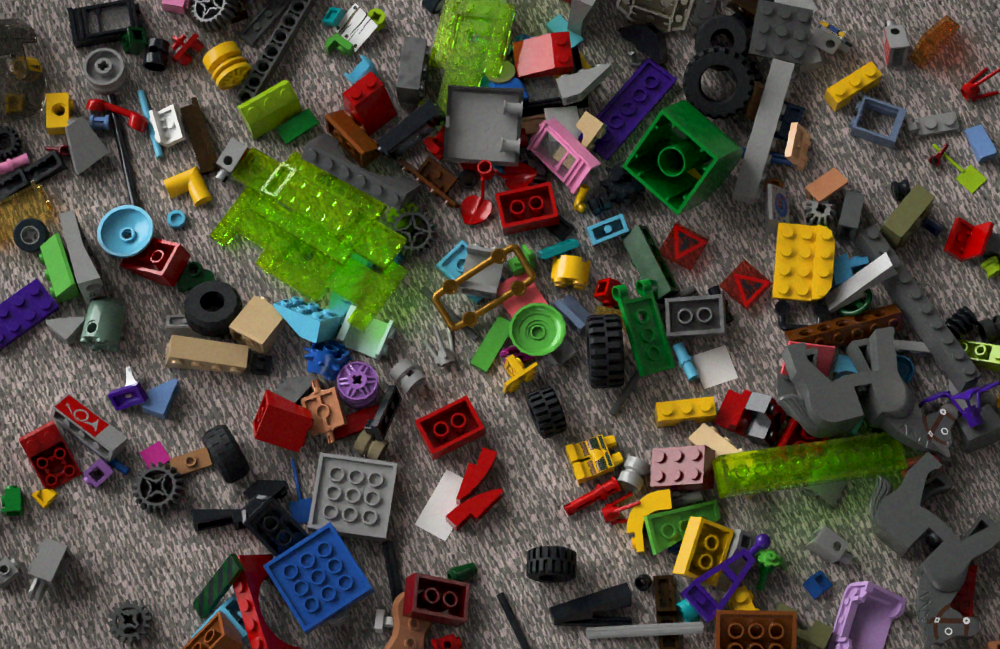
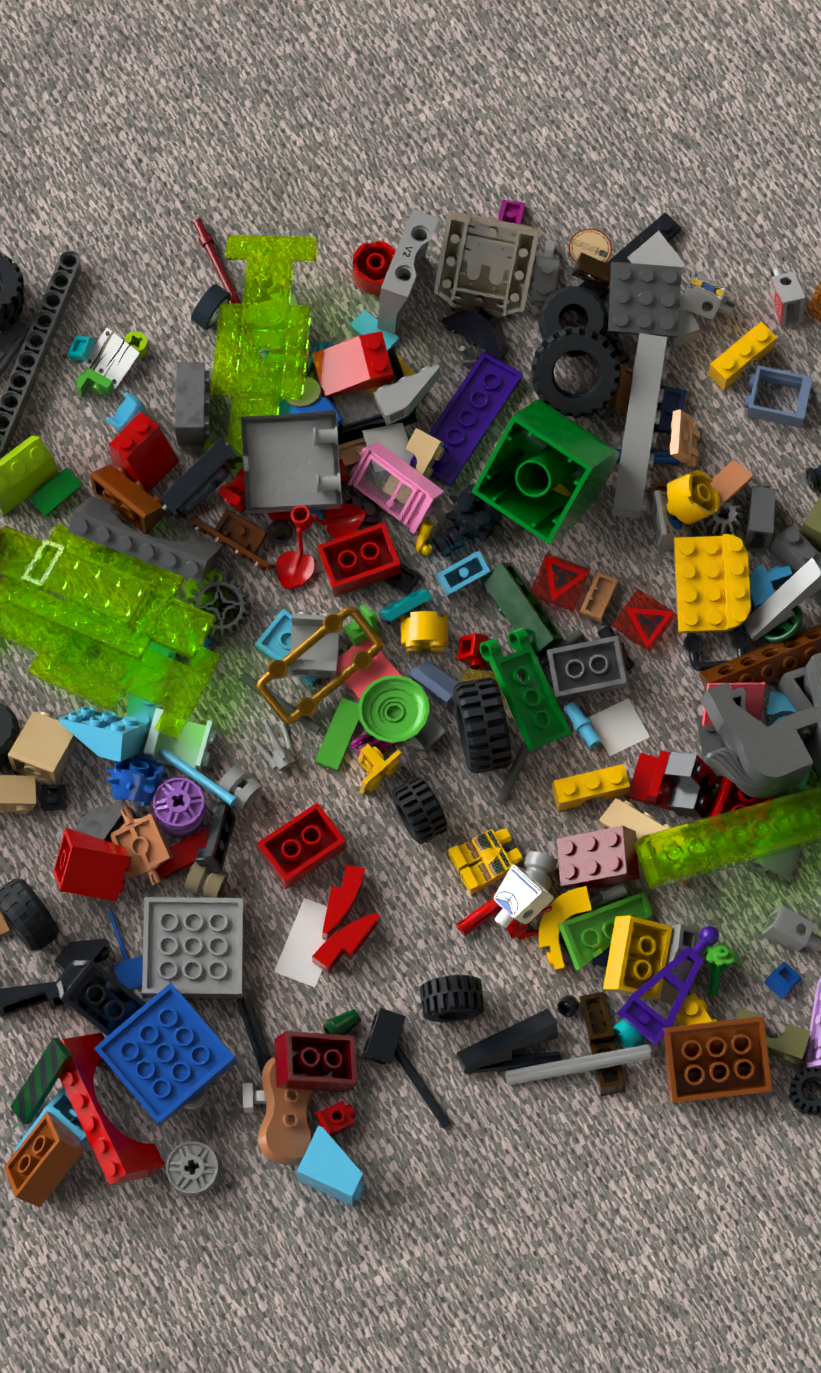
camera: 10 degrees left, 0 degrees up
(376, 363) = (197, 776): none -> medium azure bar
(493, 587) = (383, 1036): none -> black hinge
(616, 491) = (520, 897): none -> white torso
(712, 262) = (599, 597): none -> medium nougat plate
(797, 192) = (692, 497): none -> yellow brick

